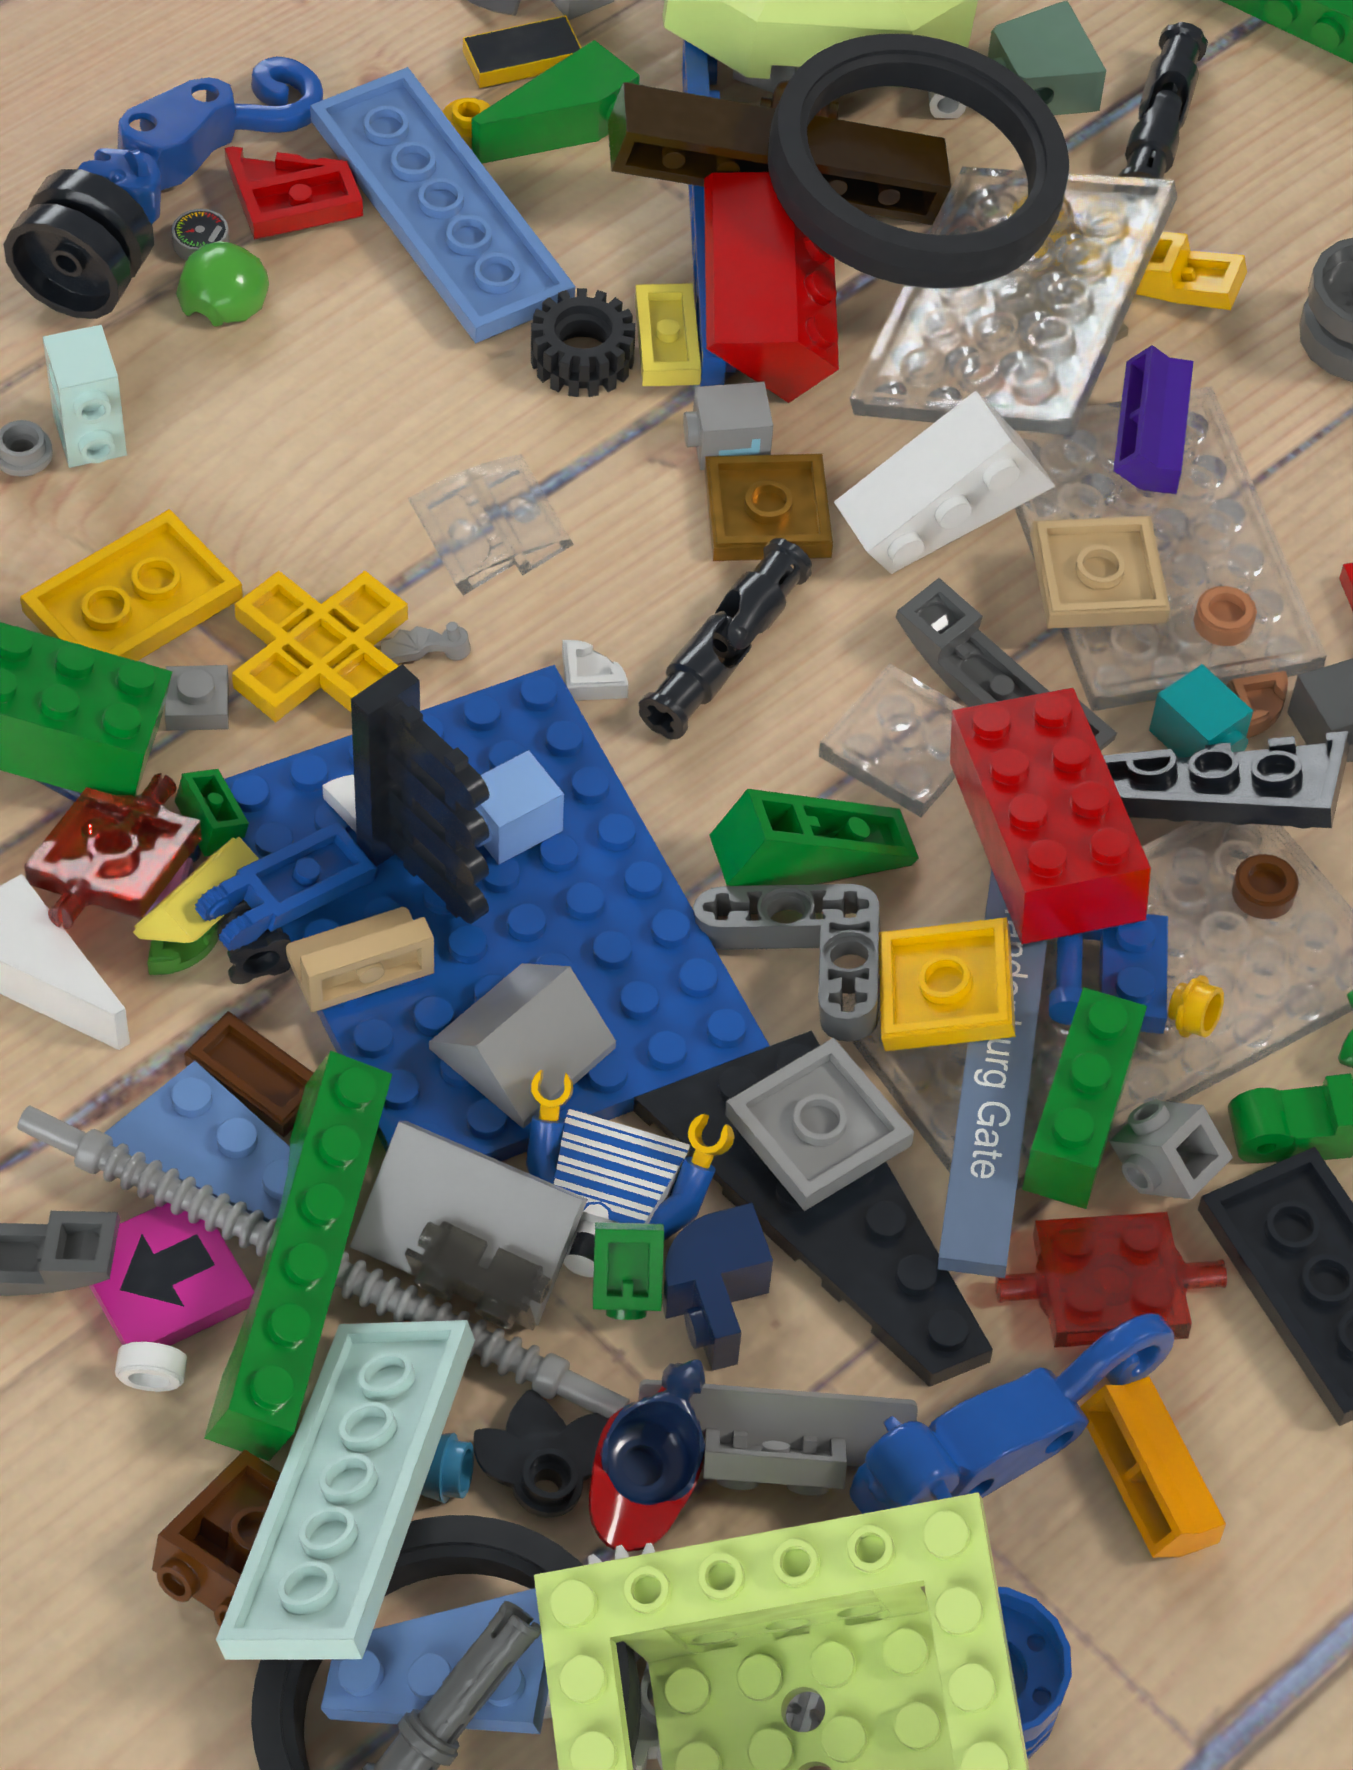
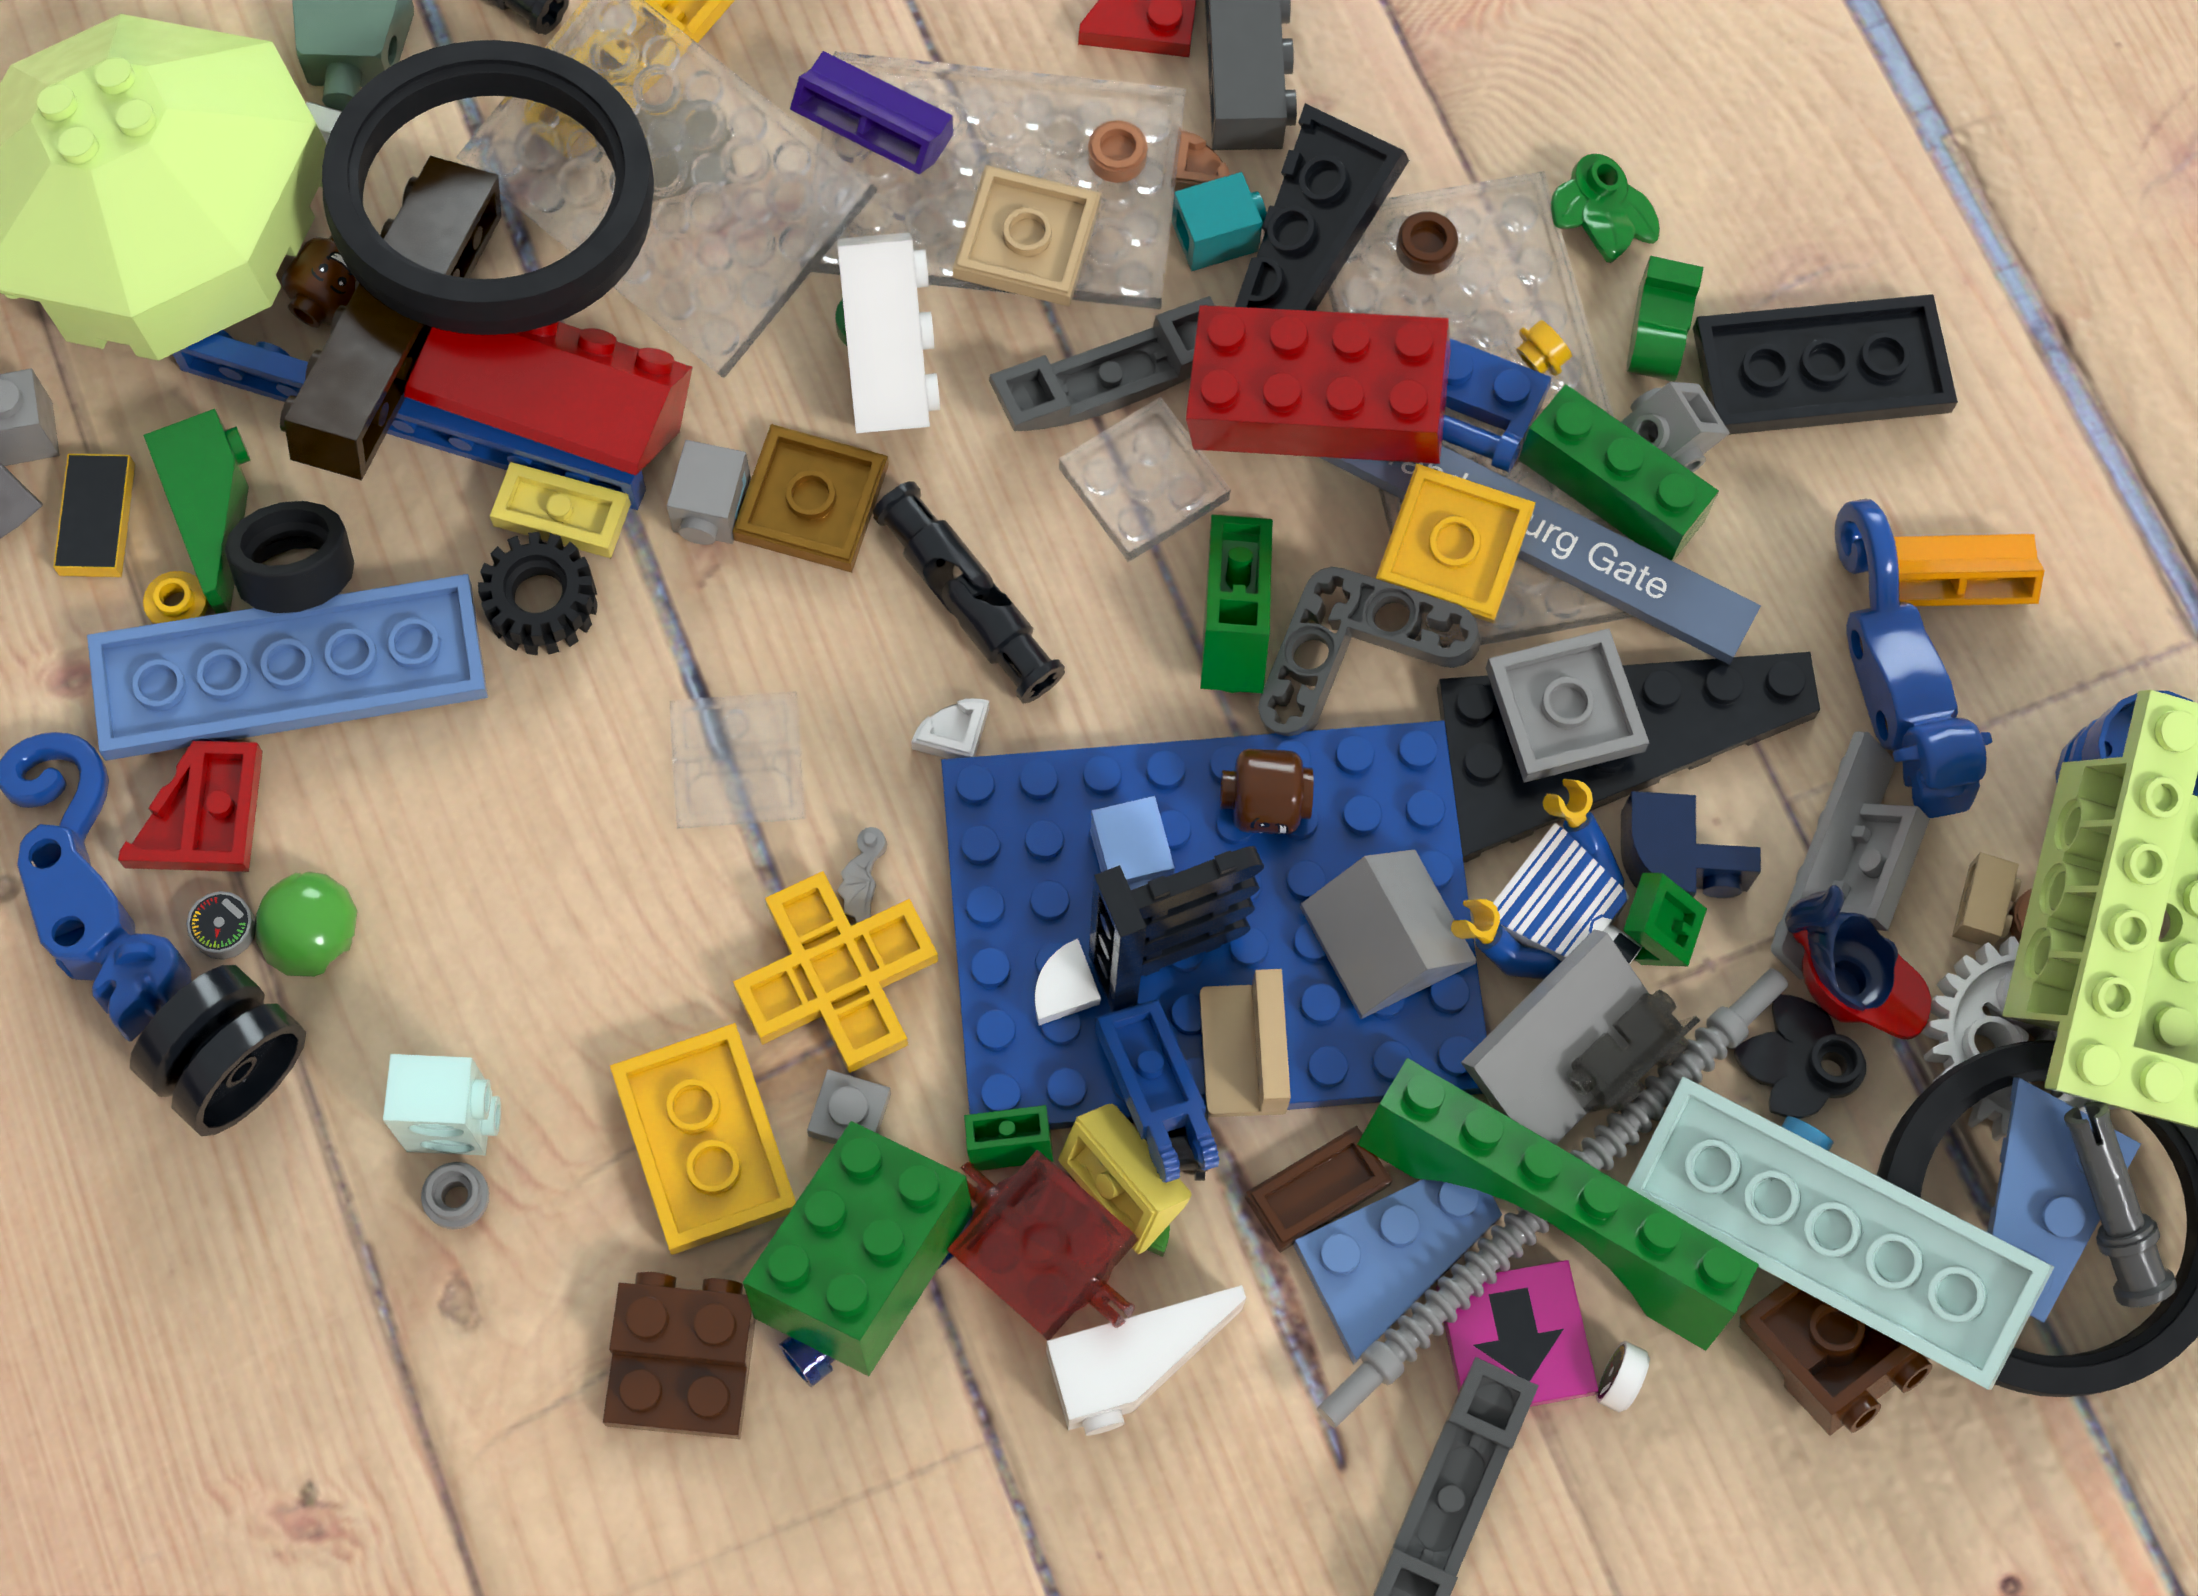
camera: 70 degrees left, 15 degrees up
(533, 165) = (297, 584): none -> black tyre
(618, 899) = (1268, 791): none -> reddish brown head
(1106, 1272) = (1767, 529): clear red plate -> none

